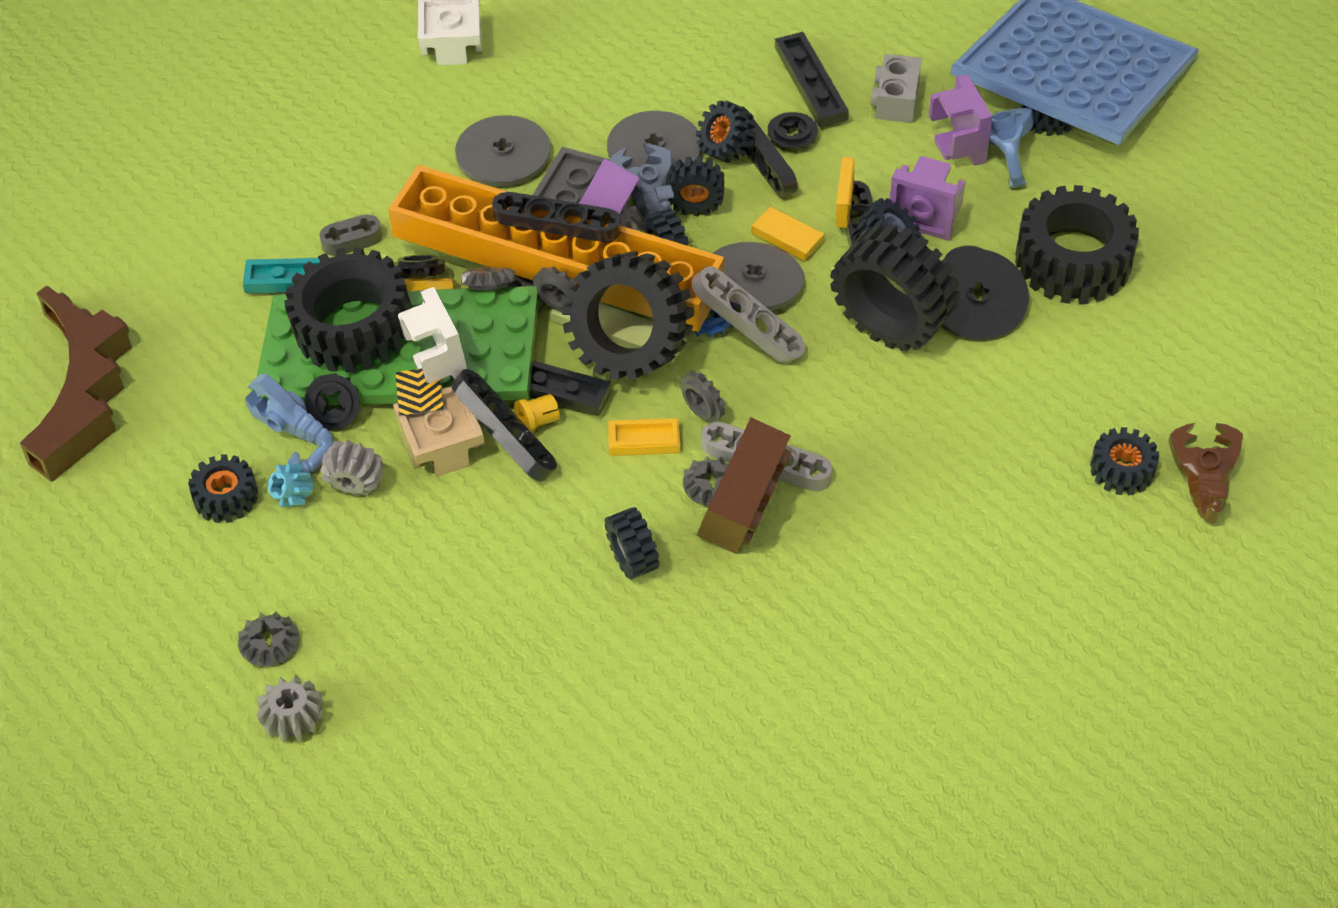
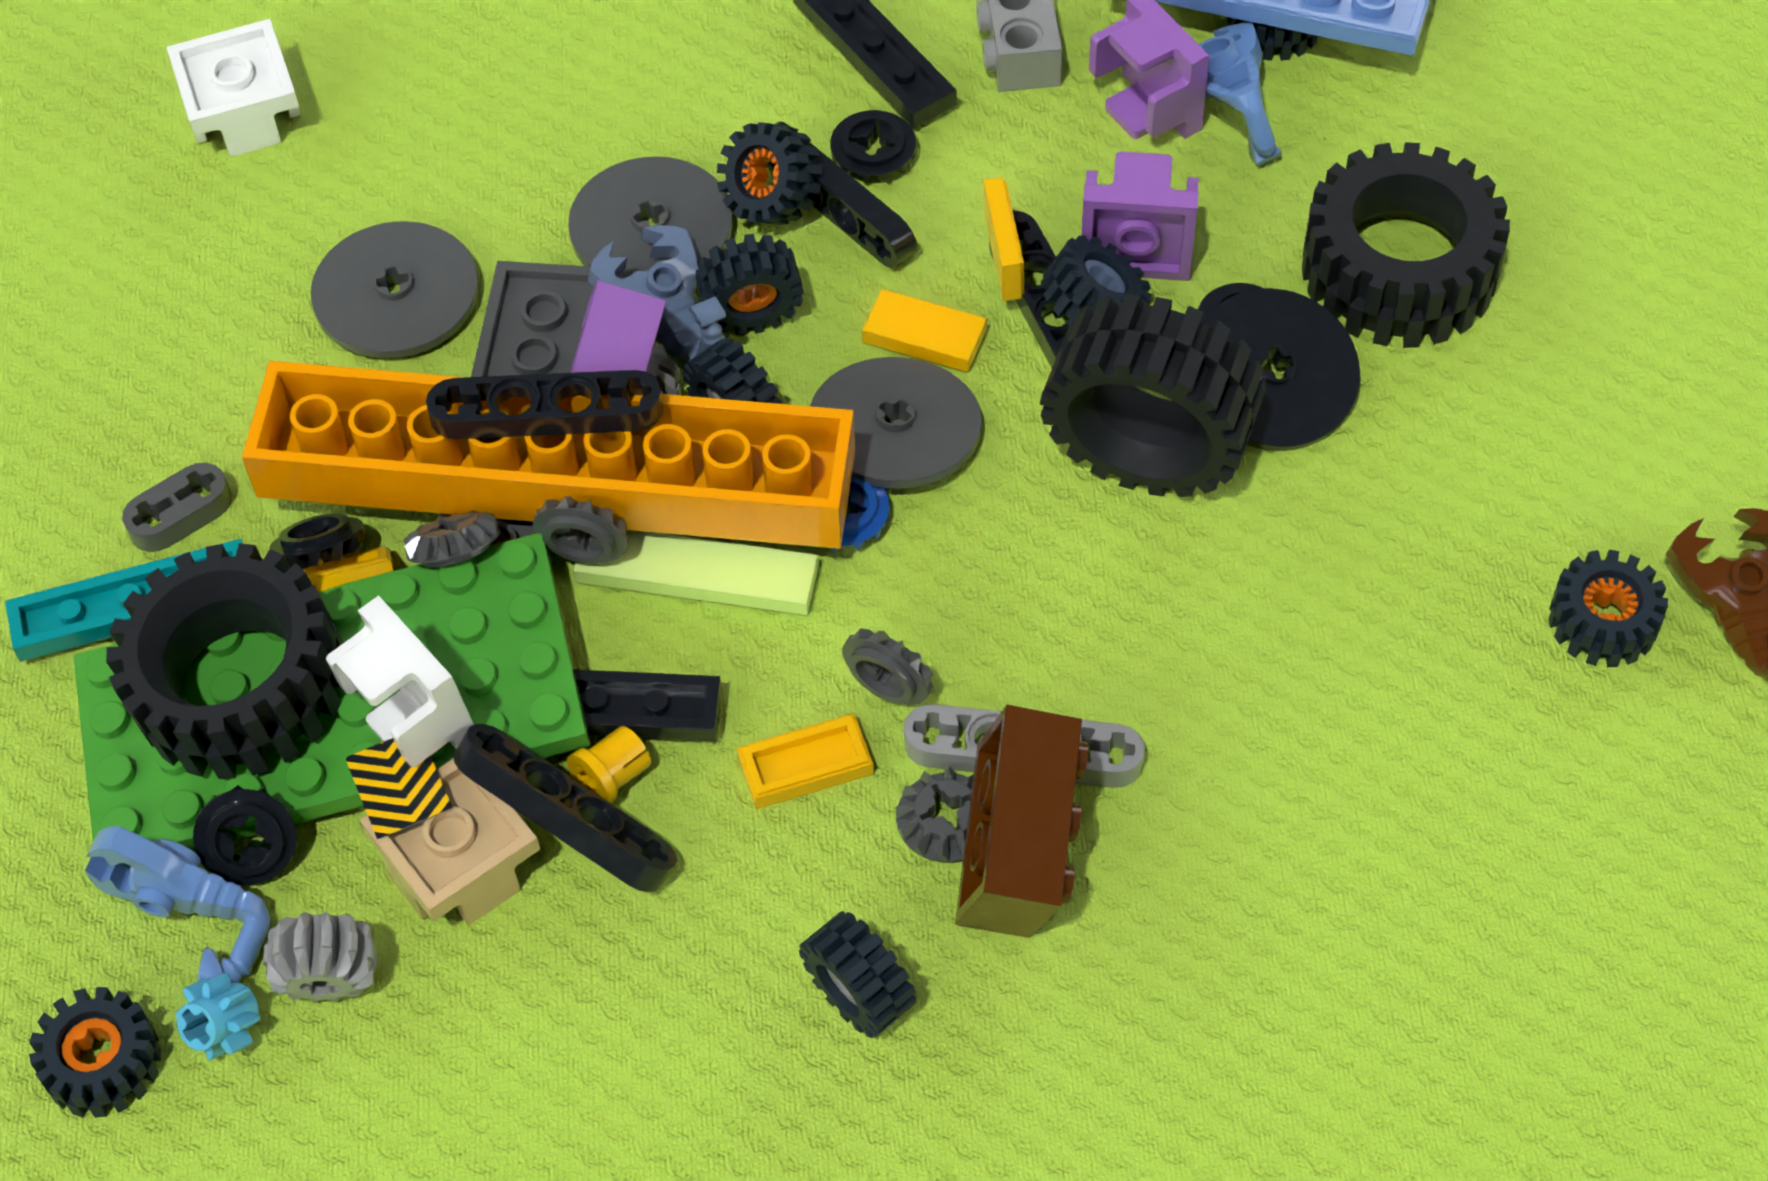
camera: 15 degrees left, 5 degrees up
(666, 306) = (741, 488): black tyre -> none
(750, 310) = (922, 493): light grey beam -> none

